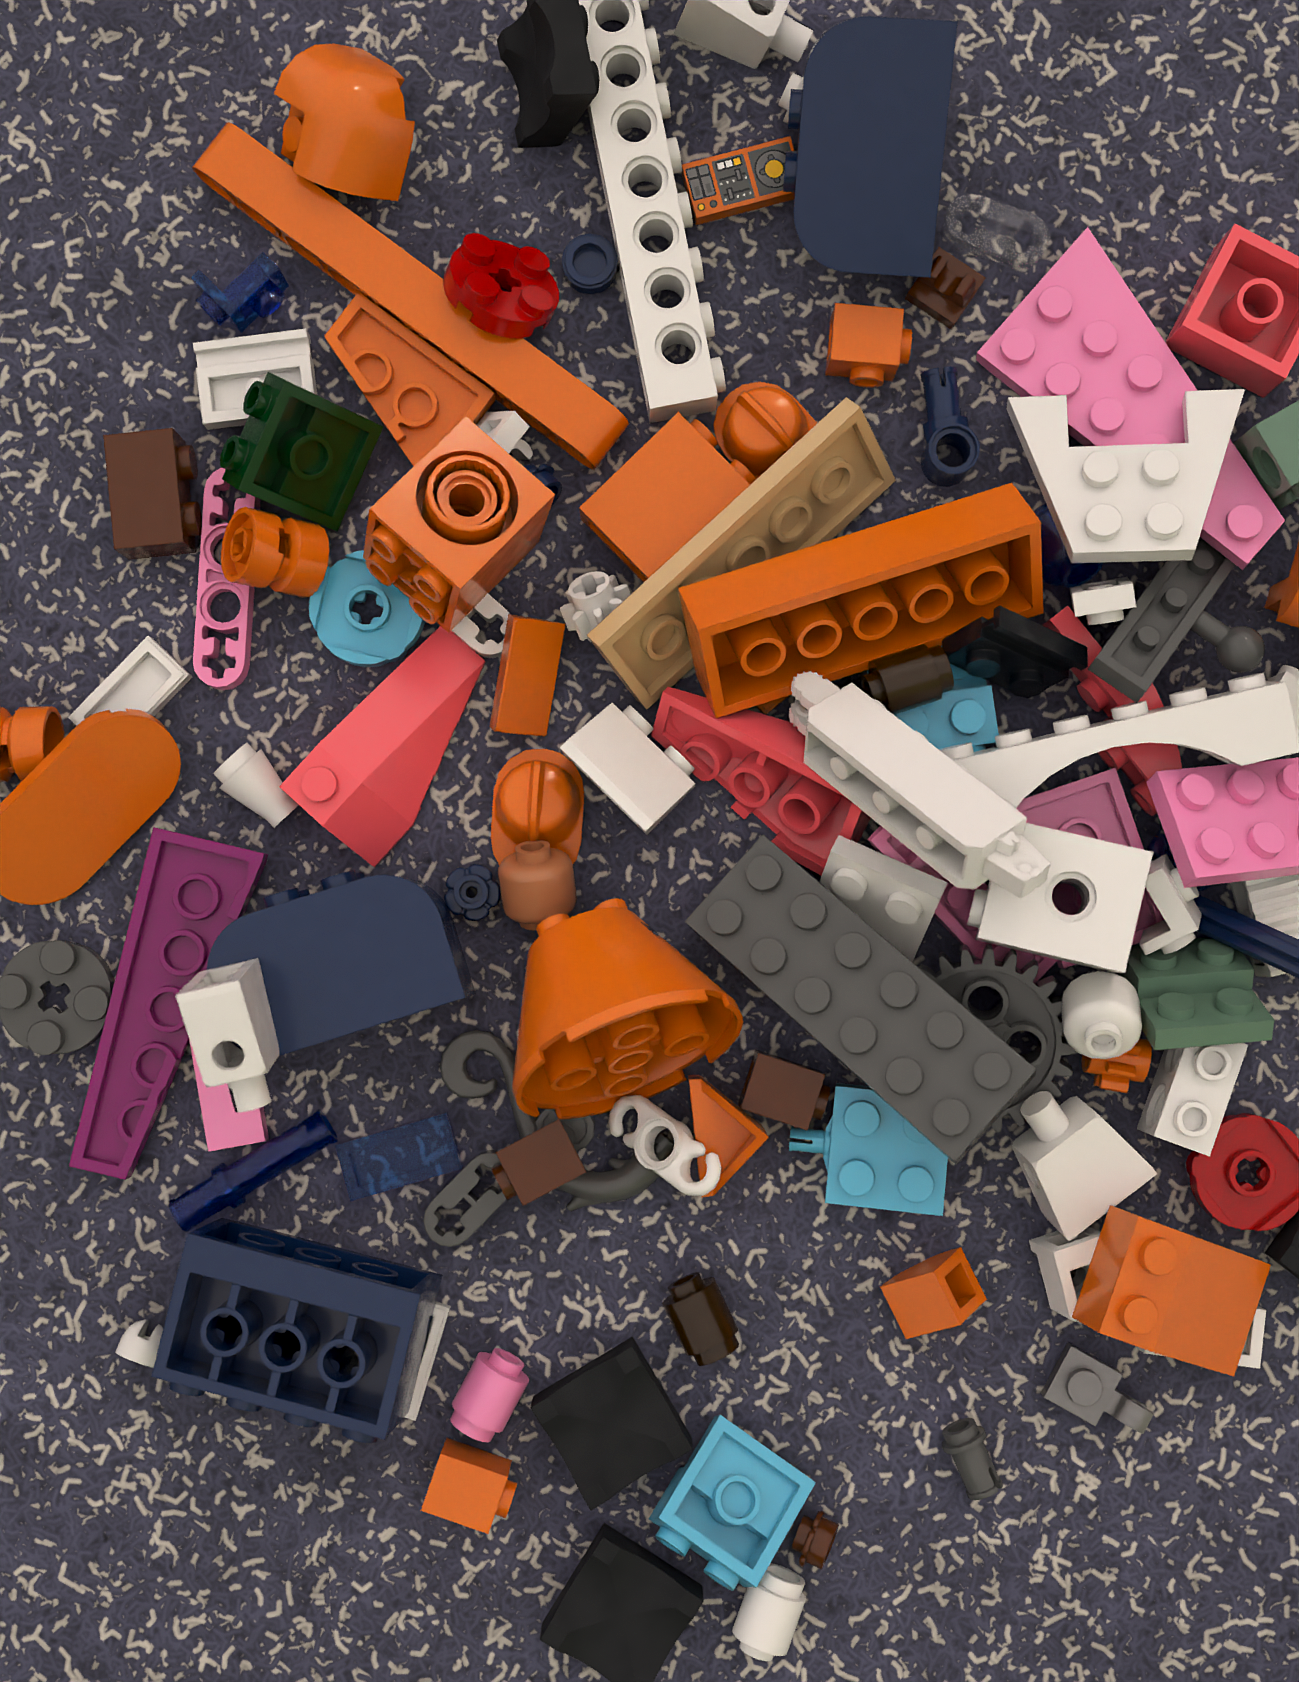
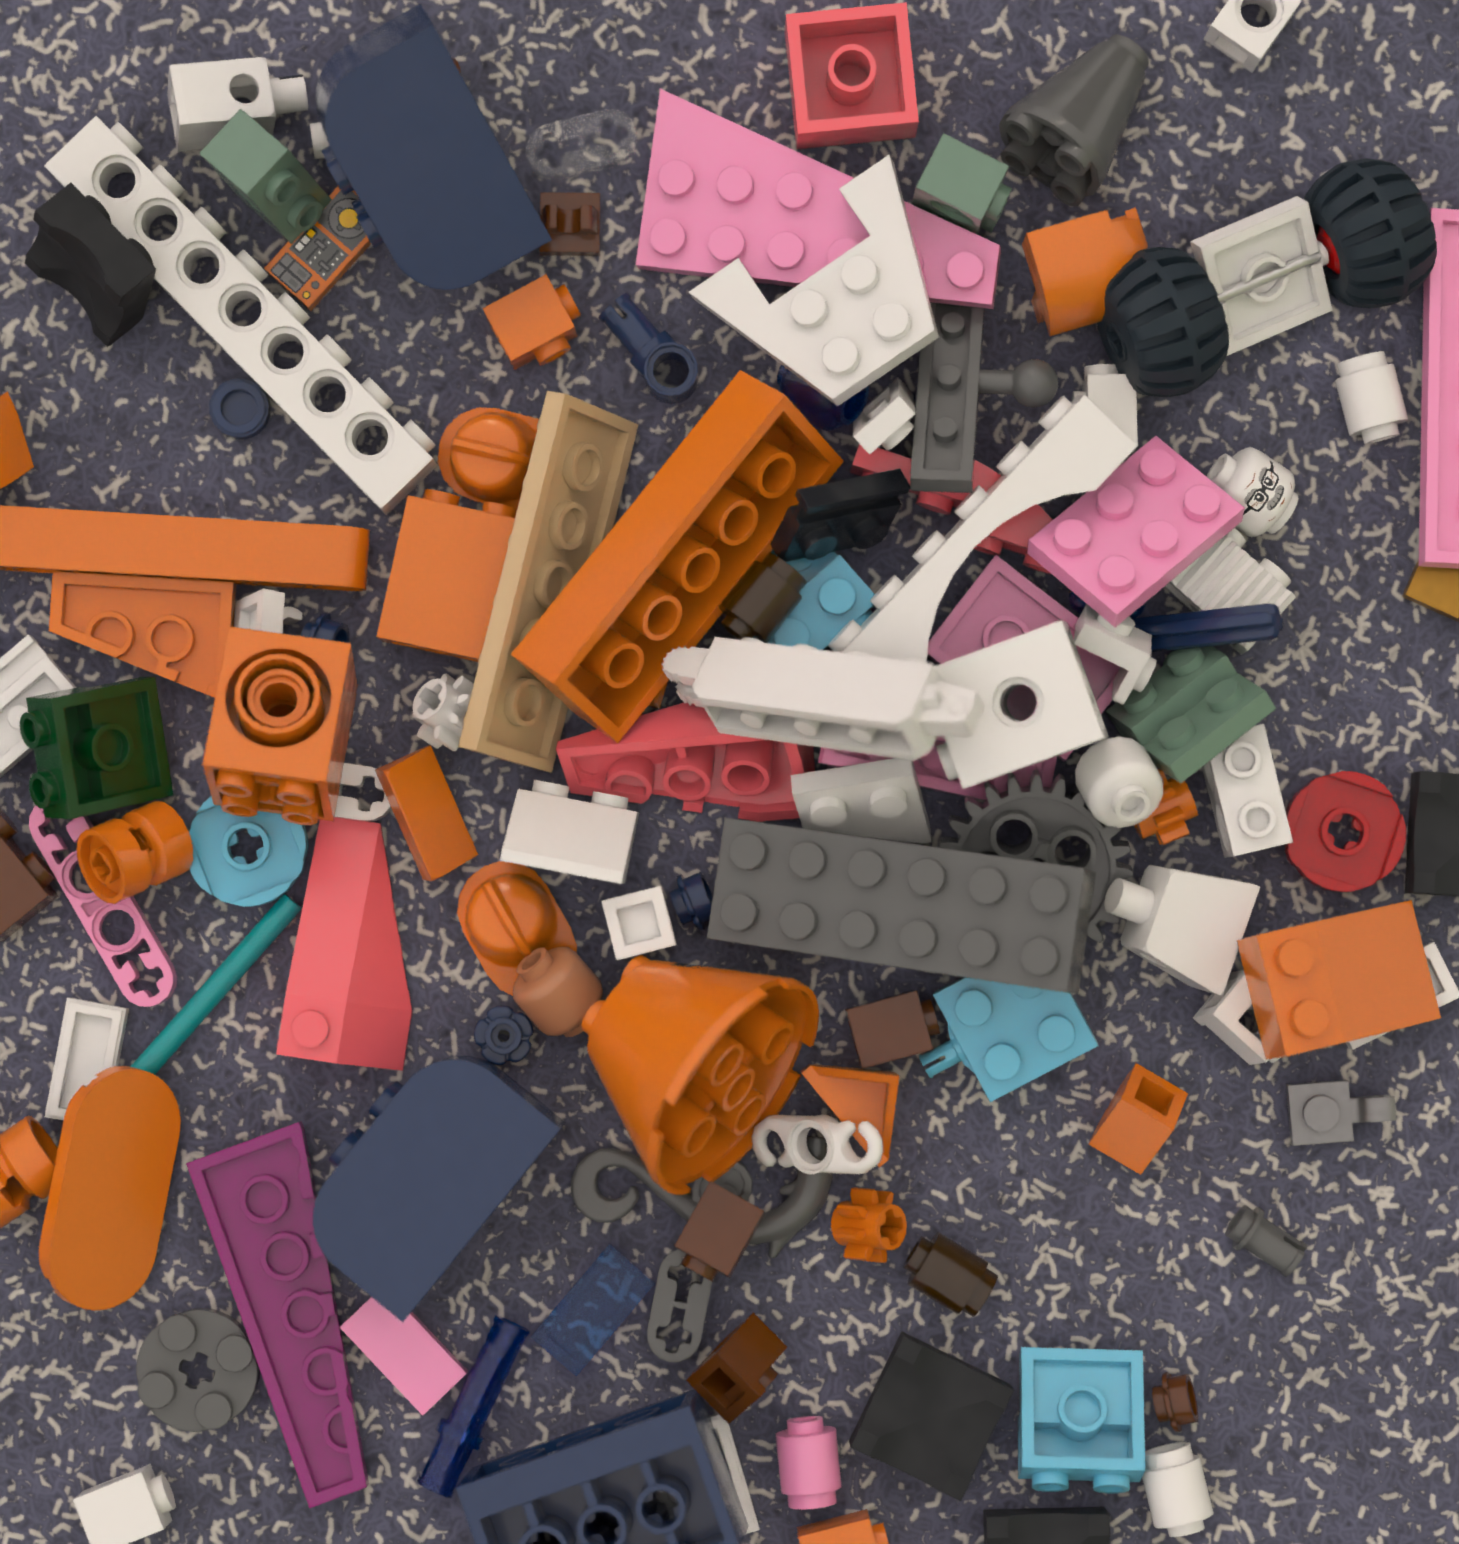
camera: 30 degrees left, 0 degrees up
(227, 1008) = (364, 1267): white torso -> none
(255, 784) = (250, 1066): white cone -> none
(272, 704) = (218, 985): none -> teal bar
(482, 1283) = (738, 1368): none -> reddish brown brick
(486, 265) = (184, 458): red plate -> none
(638, 873) = (639, 922): none -> white brick
(662, 1236) = (868, 1225): none -> orange gear
(692, 883) = (692, 900): none -> dark blue plate
(732, 84) = (266, 176): none -> sand green brick

